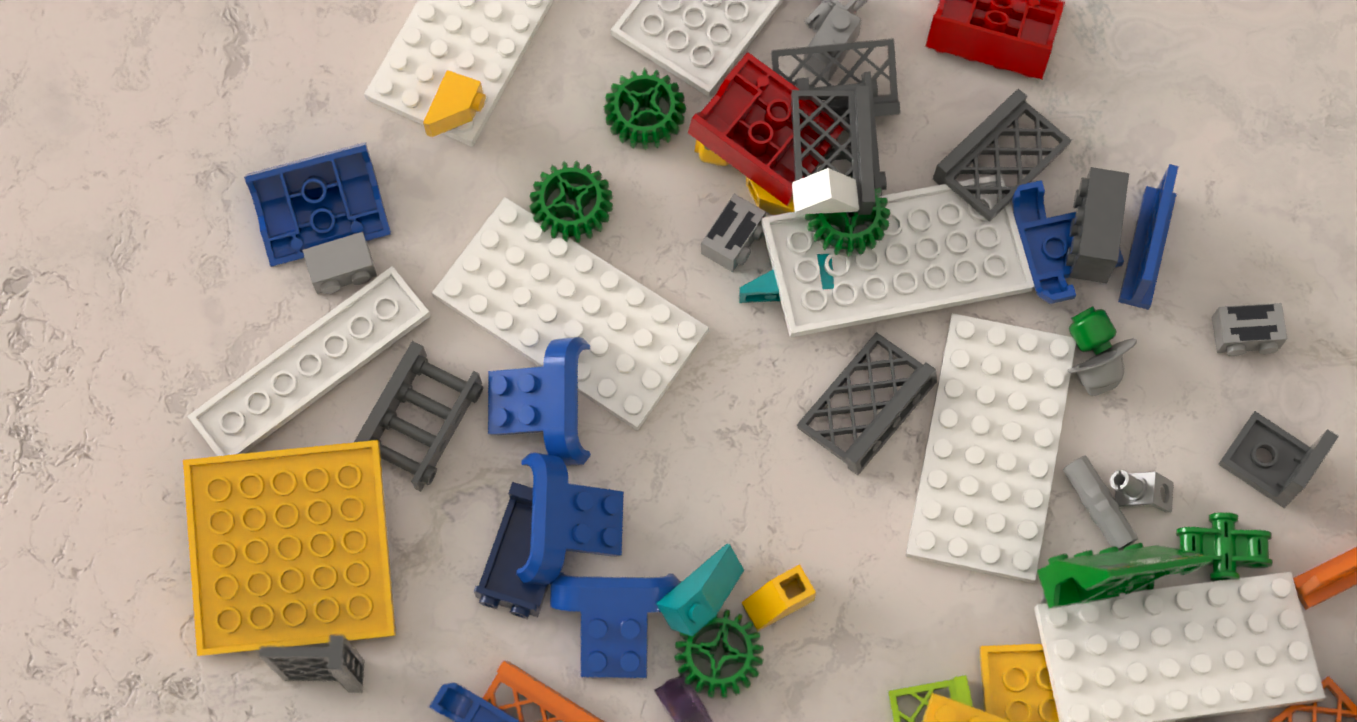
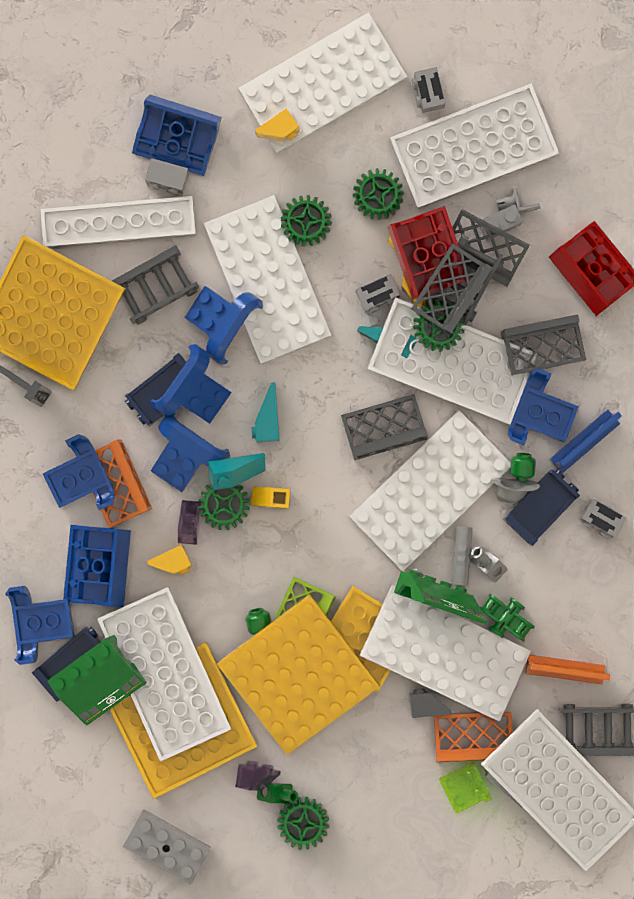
camera: 30 degrees right, 15 degrees up
(702, 500) = (266, 423): none -> teal slope
(825, 193) = (429, 312): white slope -> none
(1097, 225) = (561, 416): dark grey brick -> none
(1157, 367) = (542, 507): none -> dark blue panel
(1291, 462) = (572, 599): dark grey bracket -> none

